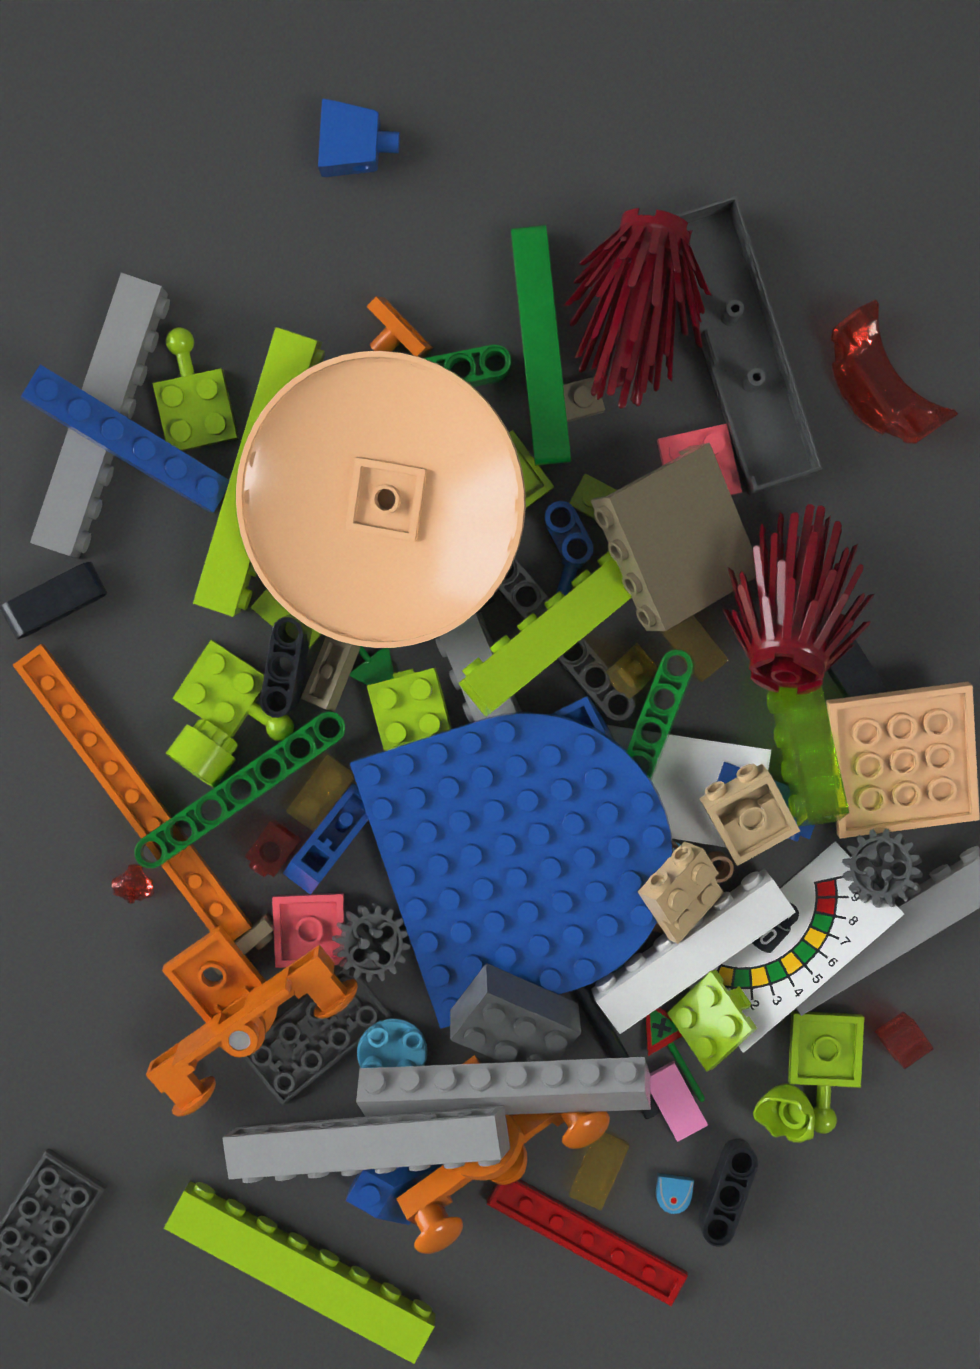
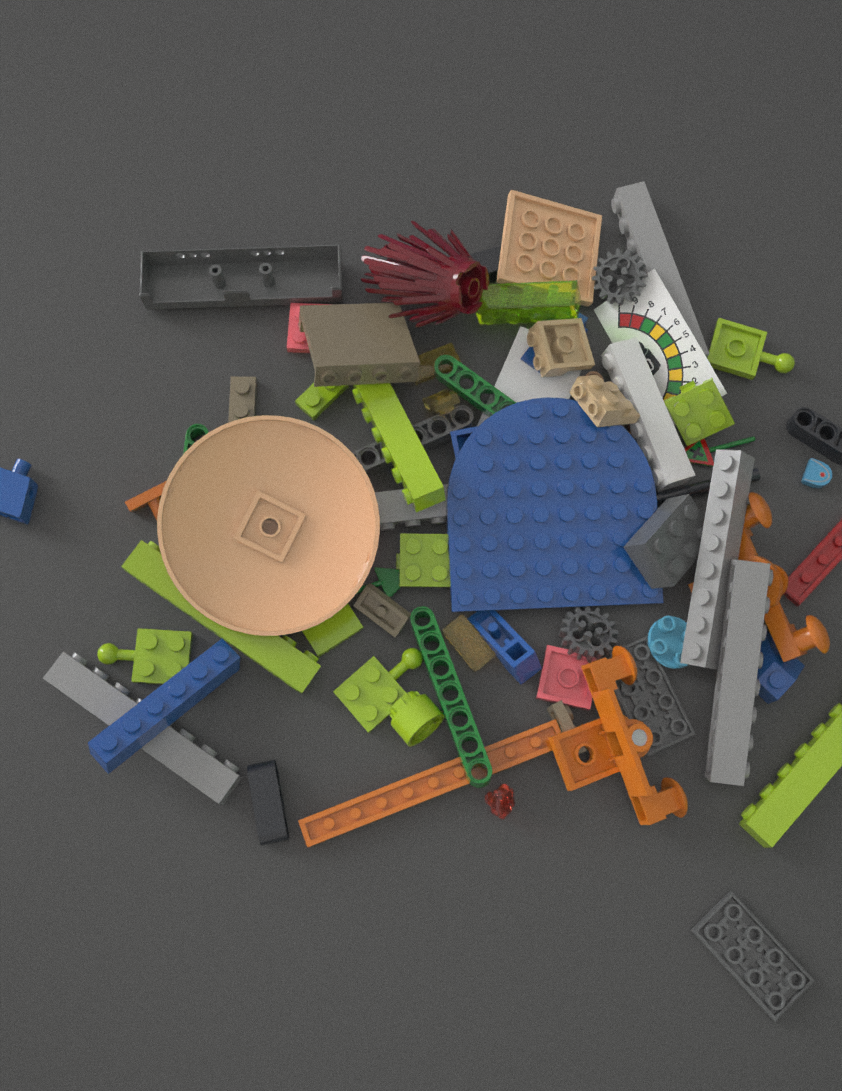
camera: 75 degrees left, 15 degrees down
(275, 677) = (379, 644): black beam -> none
(283, 838) = (498, 675): clear red brick -> none
(540, 345) = (192, 401): green beam -> none
(562, 537) = (332, 417): blue beam -> none
(598, 1171) = (792, 521): clear yellow tile -> none
(642, 278) = (171, 311): dark red plant -> none
(676, 1101) = (763, 452): bright pink tile -> none
(786, 1113) = (775, 382): lime hair -> none
(873, 384) = (296, 209): clear red windscreen -> none
(904, 1040) = (740, 295): clear red brick -> none

